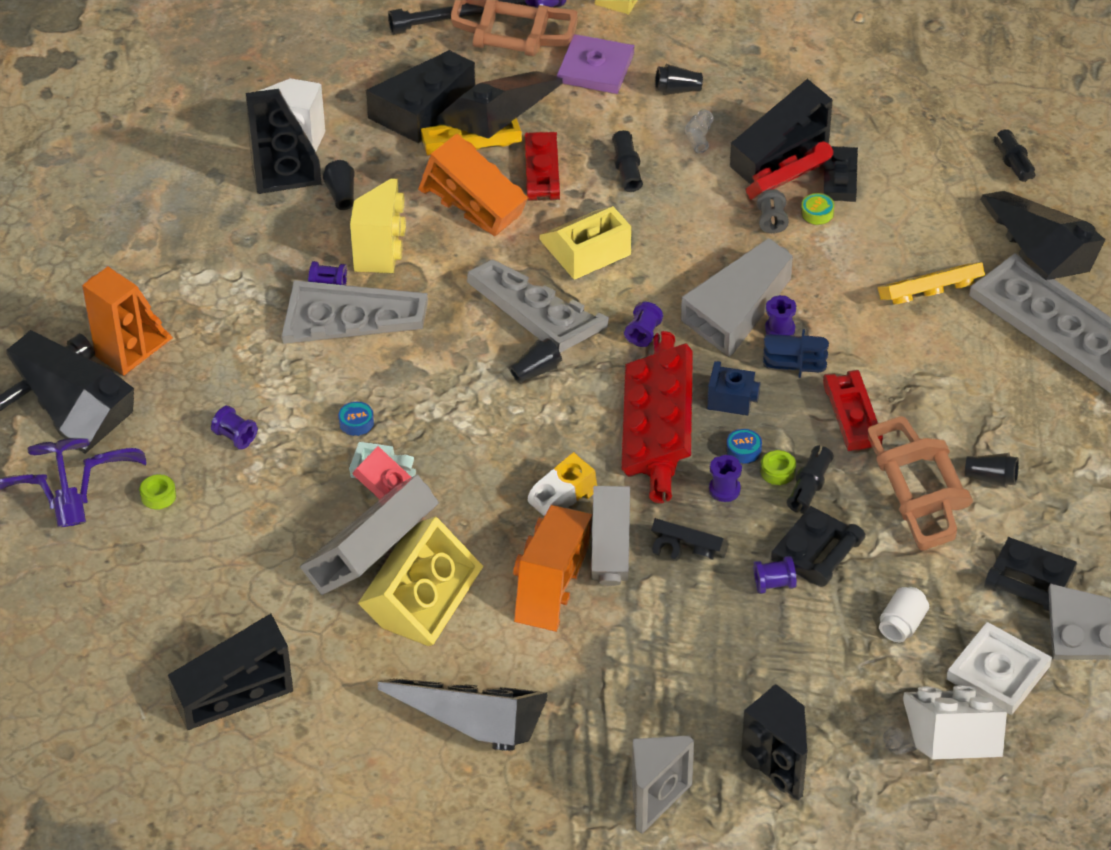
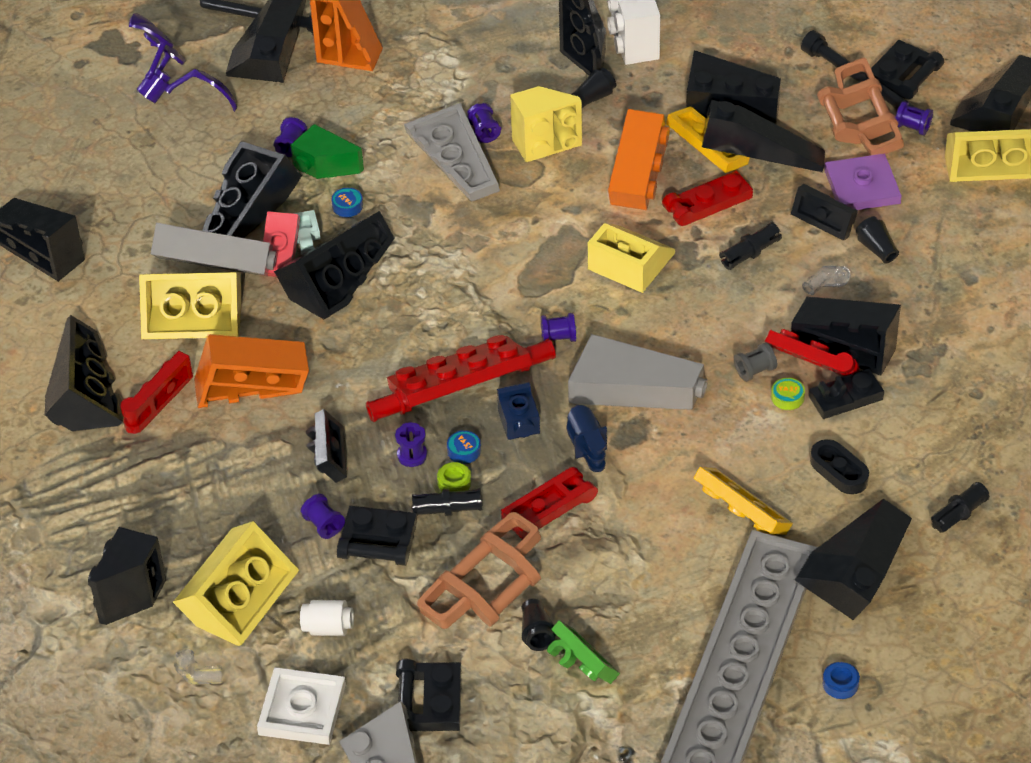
camera: 65 degrees right, 0 degrees up
(157, 491) = (207, 127): lime tile -> none
(281, 407) = (326, 154): none -> green slope
(295, 484) = (252, 185): none -> black wedge
(447, 458) = (333, 270): none -> black wedge
(528, 648) = (156, 393): none -> red plate
(536, 306) = (534, 258): light grey wing -> none
(537, 360) = (475, 280): black cone -> none
(563, 485) = (341, 348): leg -> none
(610, 534) = (300, 392): light grey slope -> none
(622, 97) = (823, 212): none -> black plate
(659, 775) = (46, 511): light grey slope -> none
(780, 313) = (628, 408): dark purple bush -> none
(822, 668) = (237, 584): none -> light yellow slope
(926, 208) = (843, 471): none -> black plate
(955, 723) = (210, 688): white slope -> none
(1035, 449) = (575, 647): none -> bright green plate

